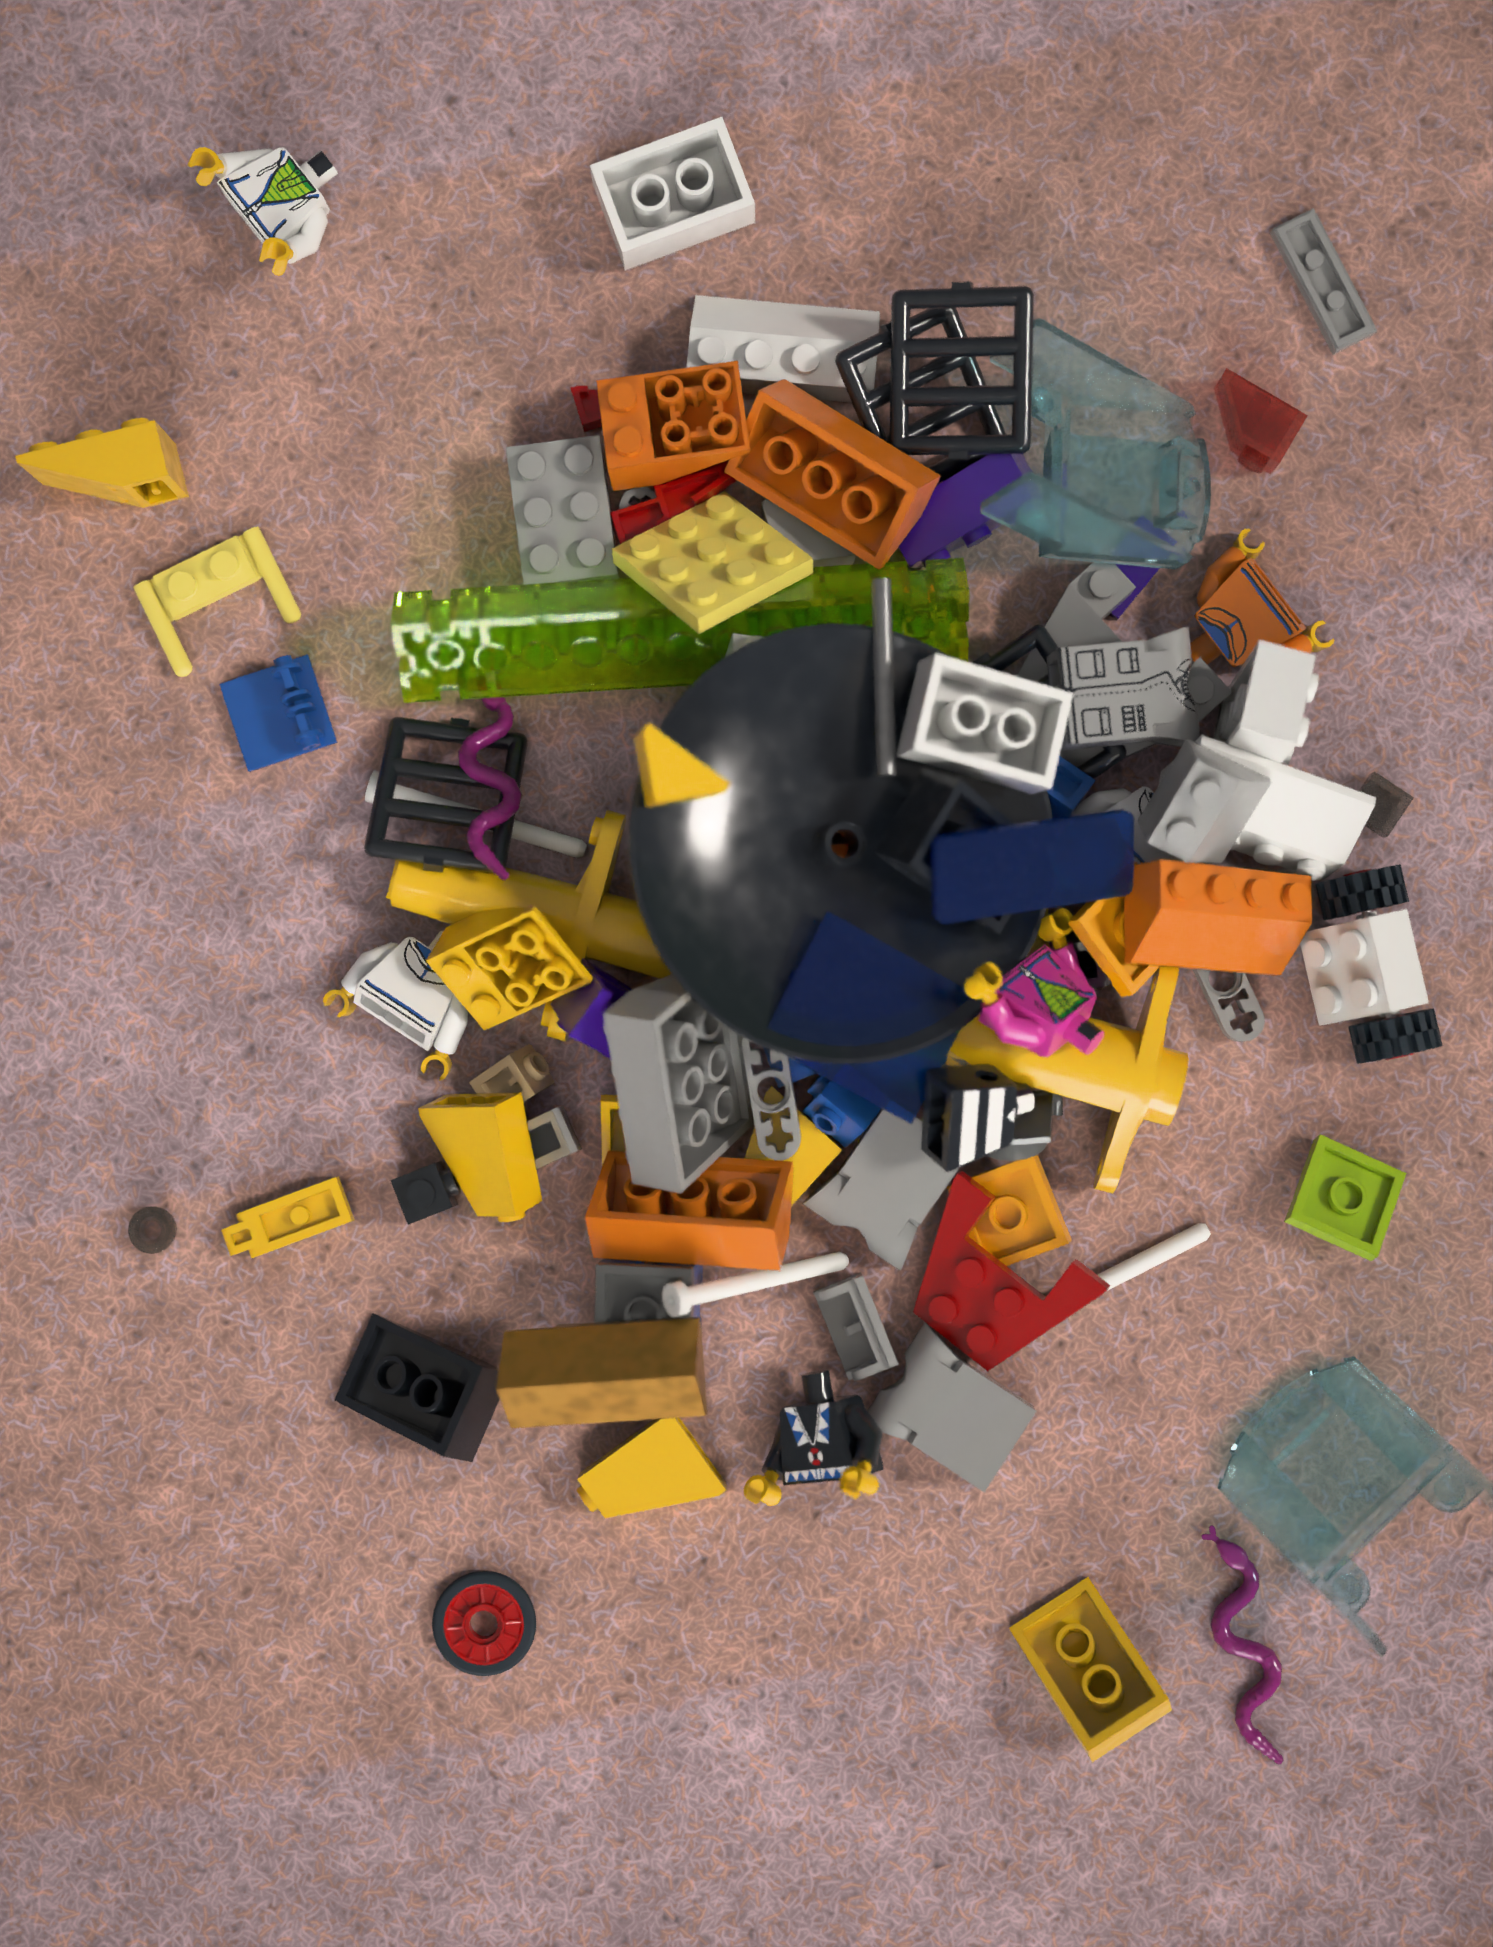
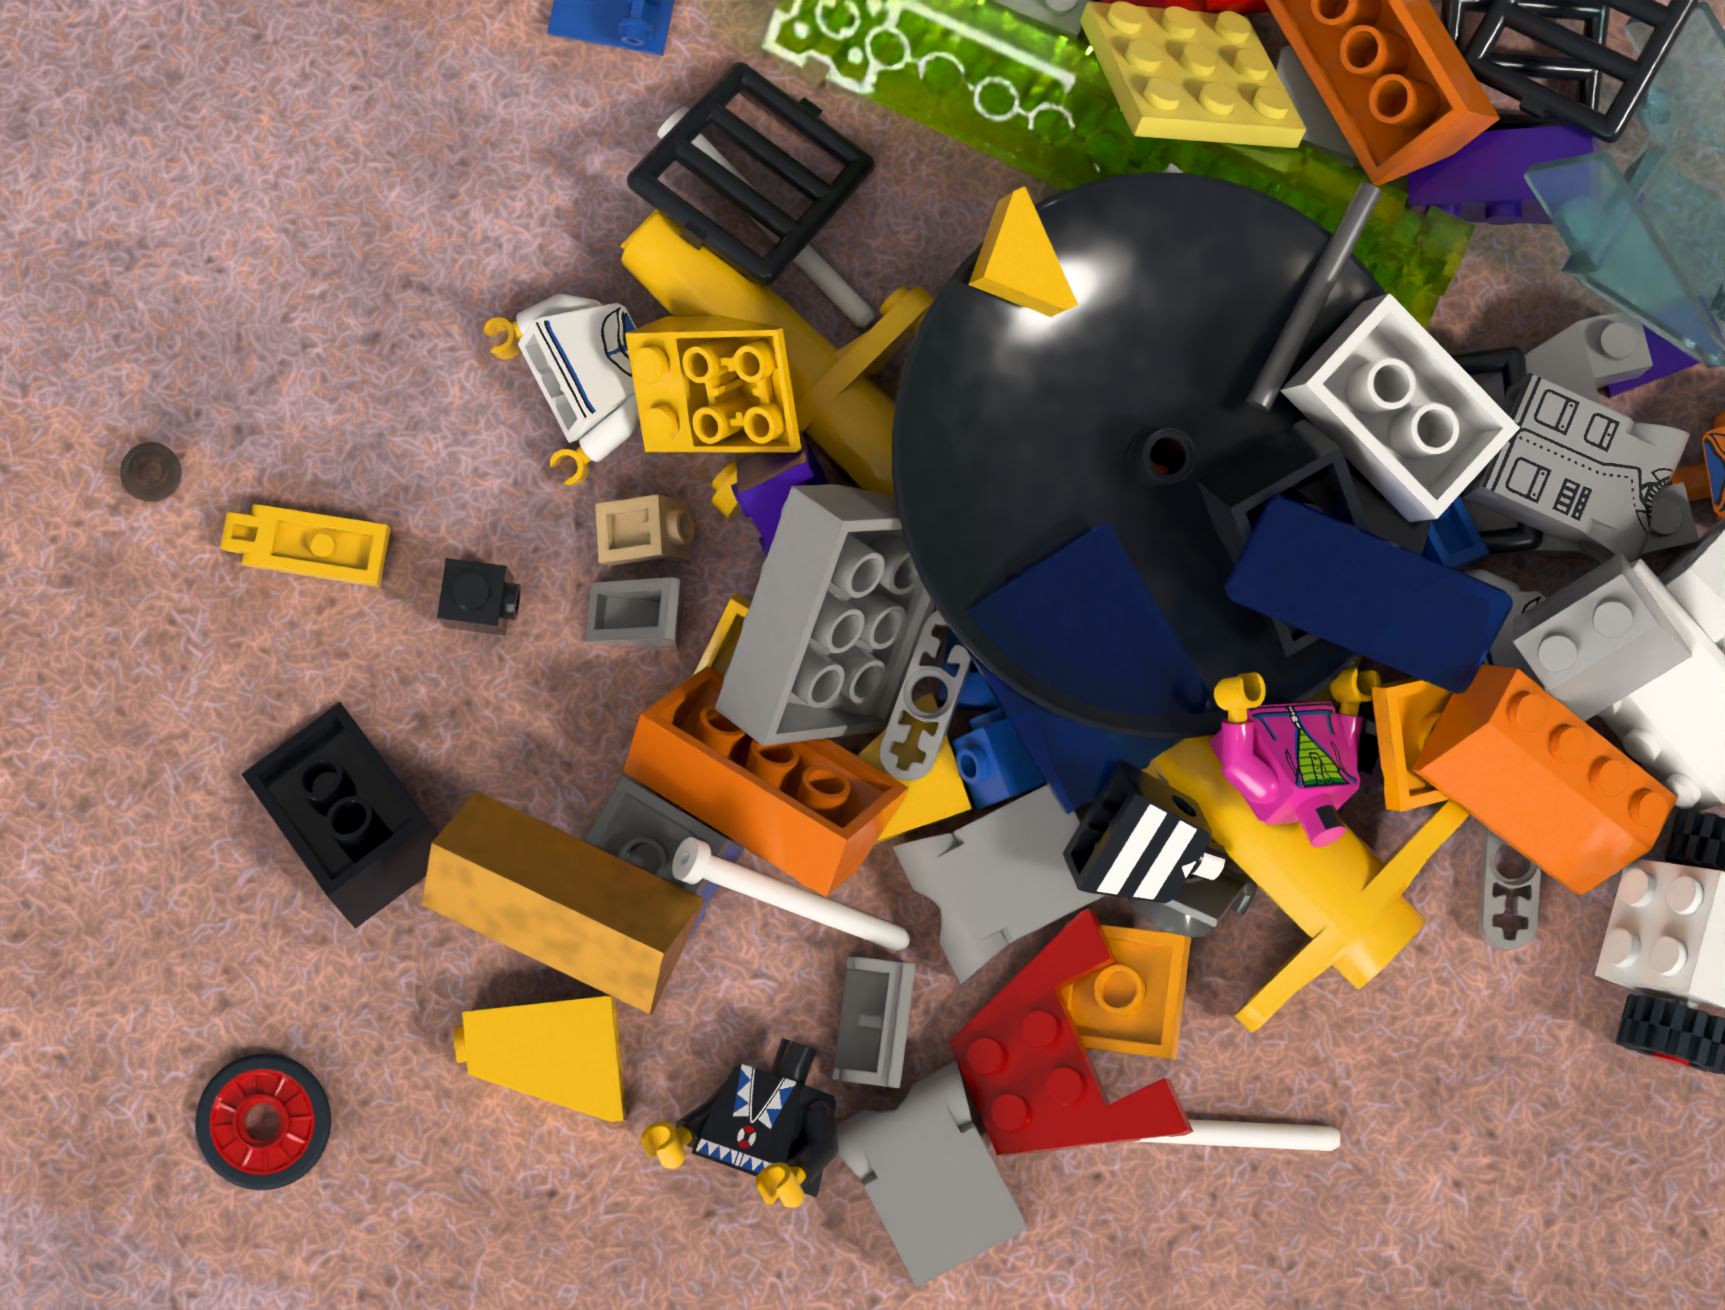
camera: 25 degrees right, 5 degrees down
(487, 1150) = (572, 589): yellow slope -> none
(491, 777) = (811, 179): magenta animal -> none
(1345, 1197) = (1518, 1189): lime hinge -> none

